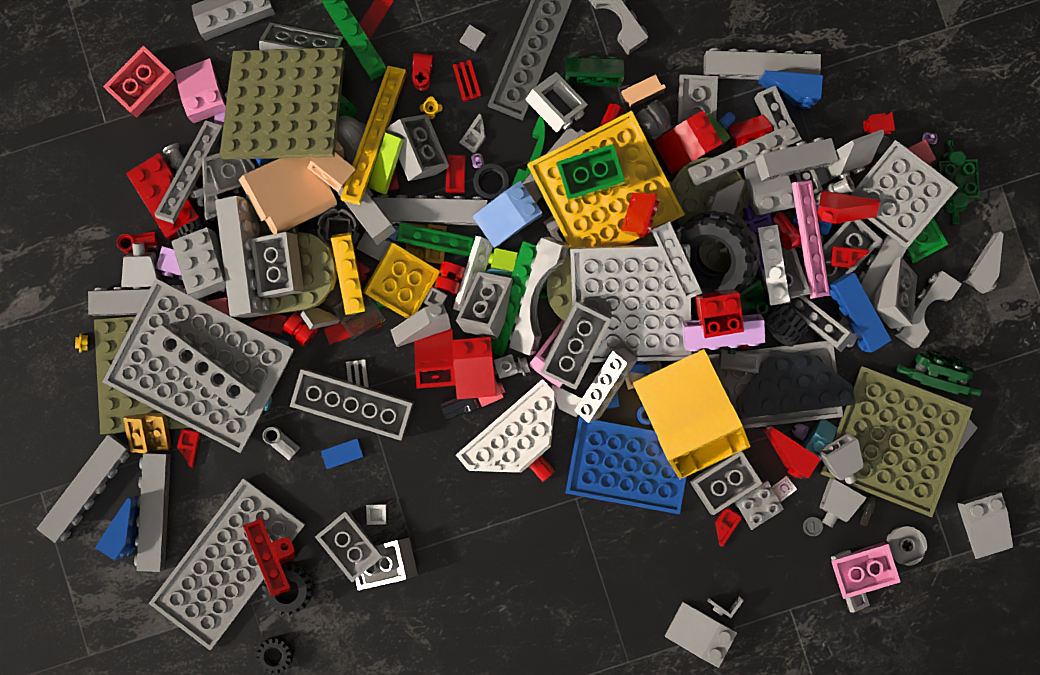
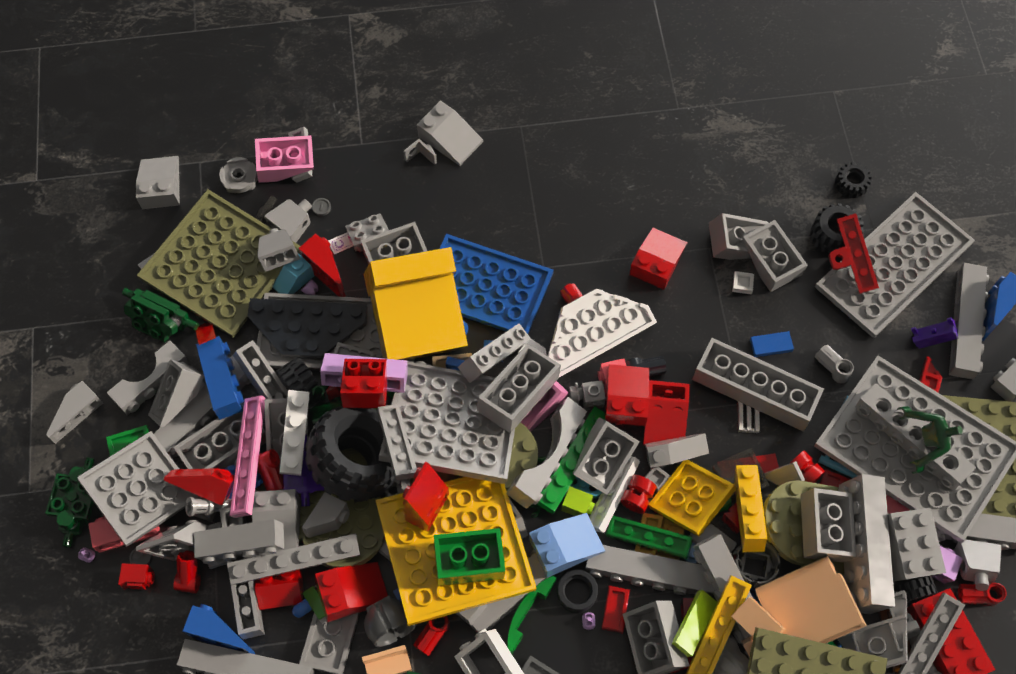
camera: 170 degrees left, 20 degrees down
(147, 432) = (974, 394): pearl gold slope -> none
(186, 363) = (934, 434): none -> dark green piece
(186, 489) = (935, 333): none -> dark purple hinge
(463, 529) = (657, 258): none -> red slope
(474, 136) = (587, 649): light grey tile -> none
(726, 524) = (402, 218): red tile -> none
(836, 130) = (186, 577): none -> red piece
(846, 257) = (215, 434): red tile -> none
(887, 358) = (205, 333): none -> red sticker

